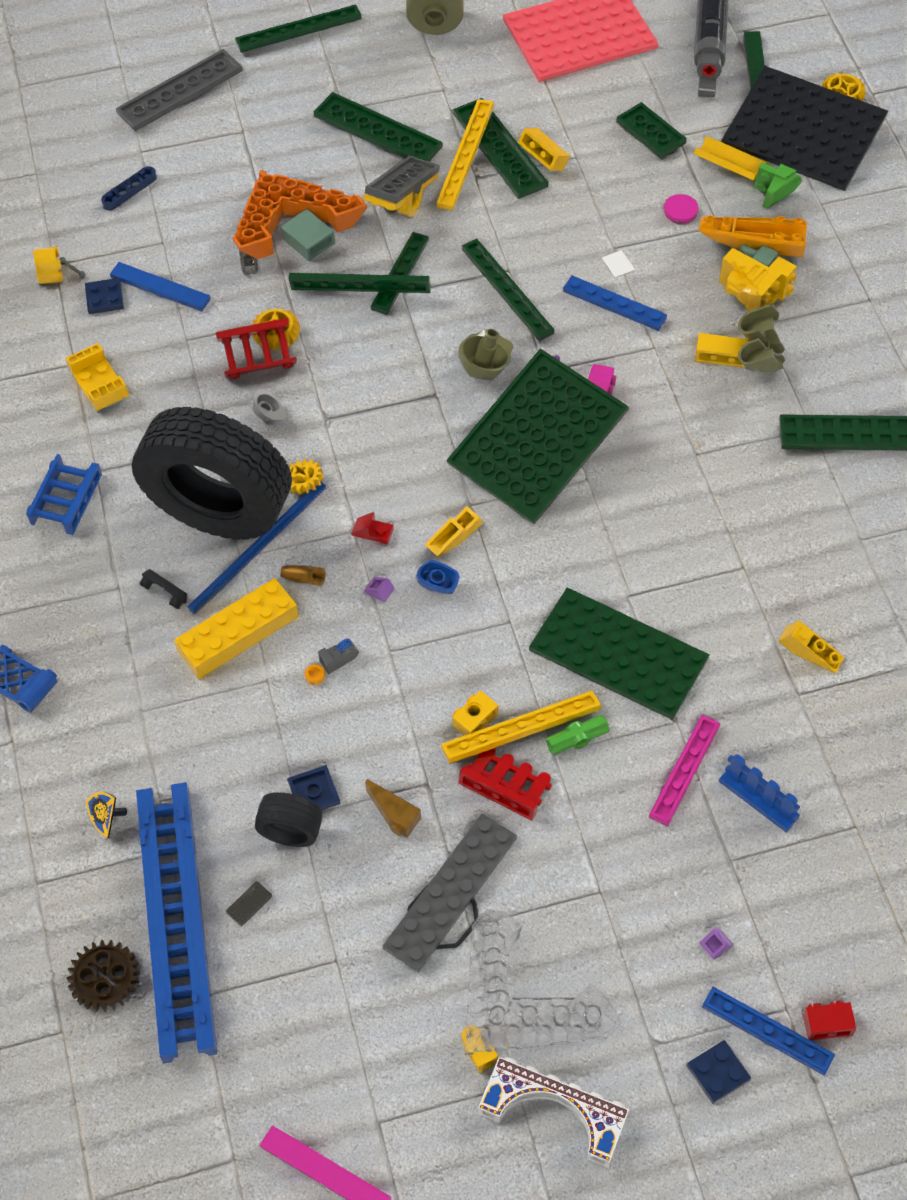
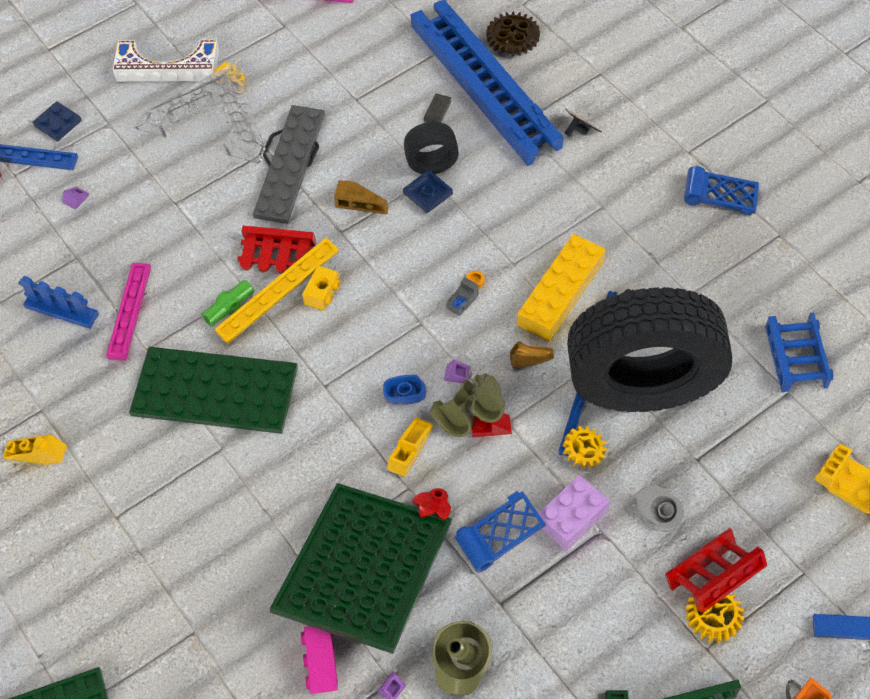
camera: 160 degrees right, 0 degrees up
(342, 430) = (573, 512): none -> lavender brick
(376, 549) = (482, 398): none -> olive piece
(434, 426) = (477, 548): none -> blue piece
(458, 475) = (431, 504): none -> red plate

